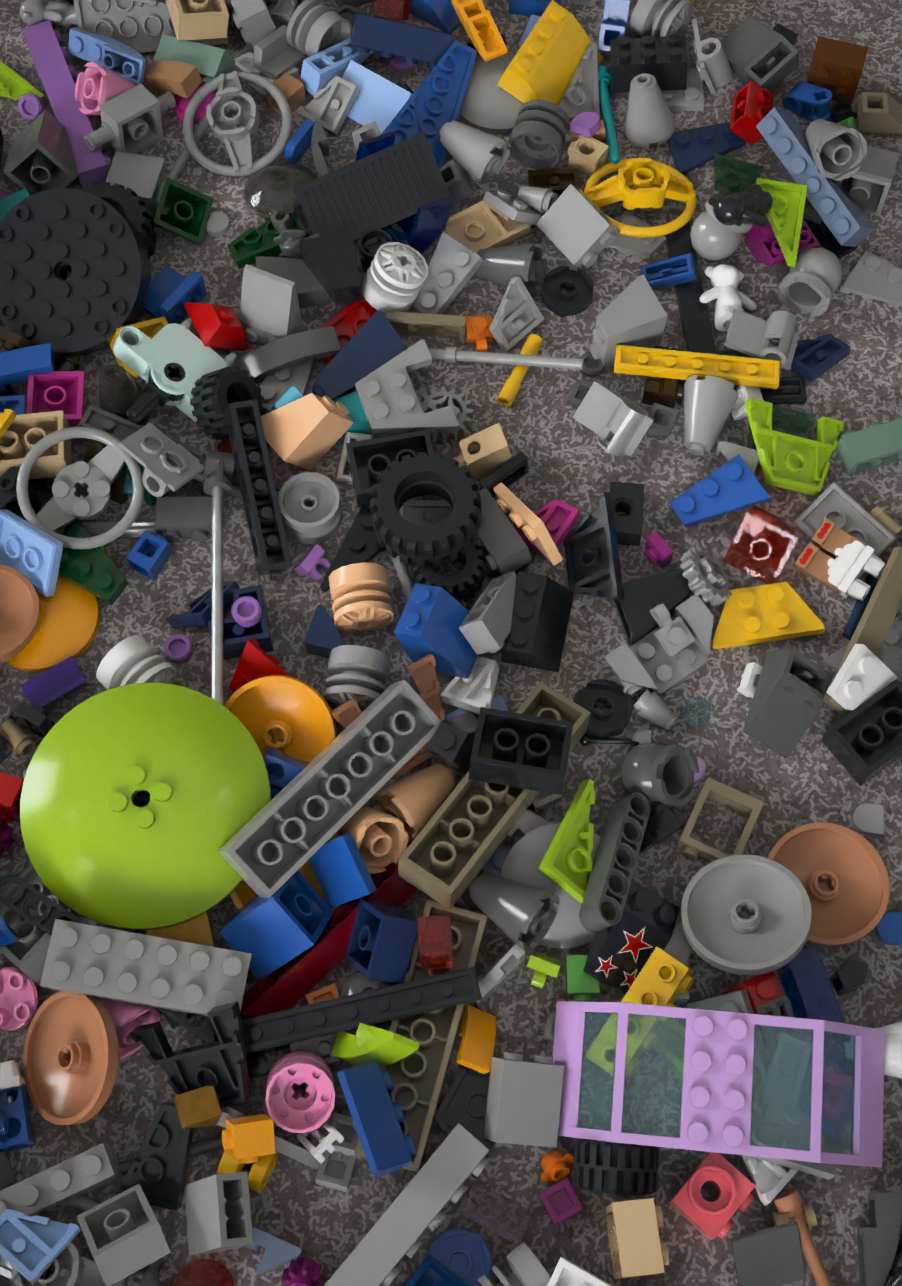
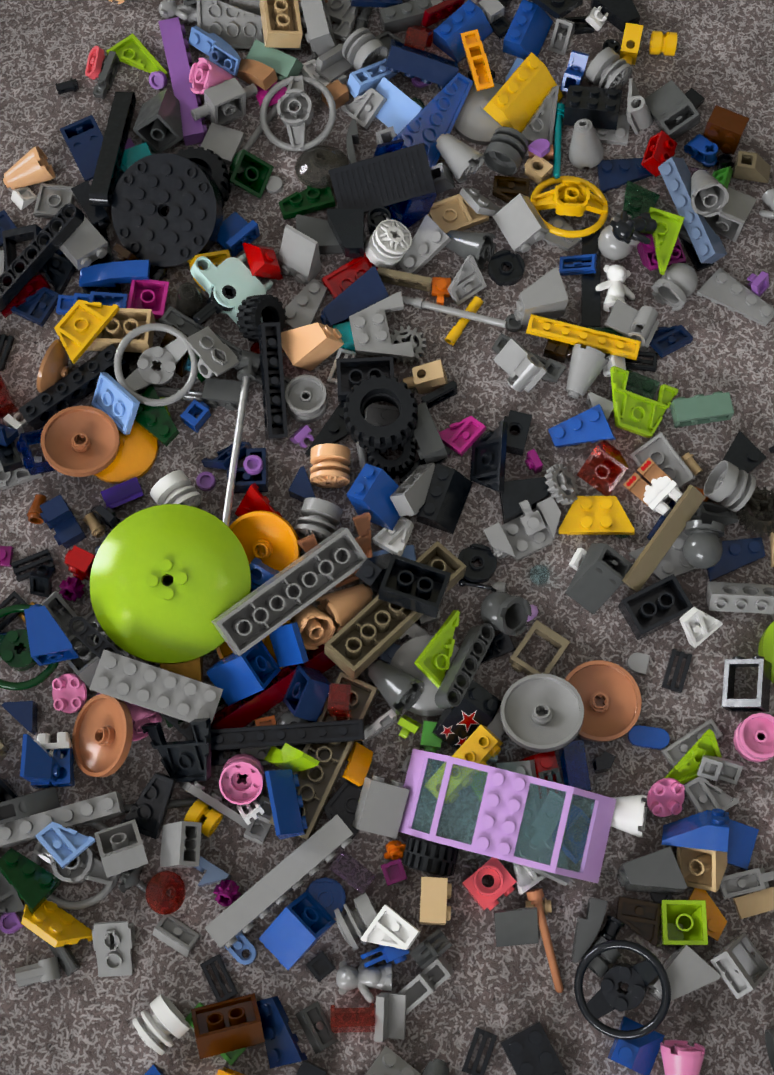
camera: 10 degrees right, 5 degrees up
(198, 1107) = (177, 779): pearl gold slope -> none
(249, 1137) = (205, 802): light orange brick -> none
(288, 239) = (320, 206): dark grey piece -> none
(290, 351) = (308, 286): dark grey slope -> none
(290, 396) = (301, 321): medium azure slope -> none
(299, 142) = (339, 132): blue tile -> none
(528, 522) = (445, 427): light nougat wing -> none
(537, 197) = (497, 197): light grey cone -> none
(653, 709) = (510, 568): light grey cone -> none
(859, 678) = (649, 569): white wing -> none

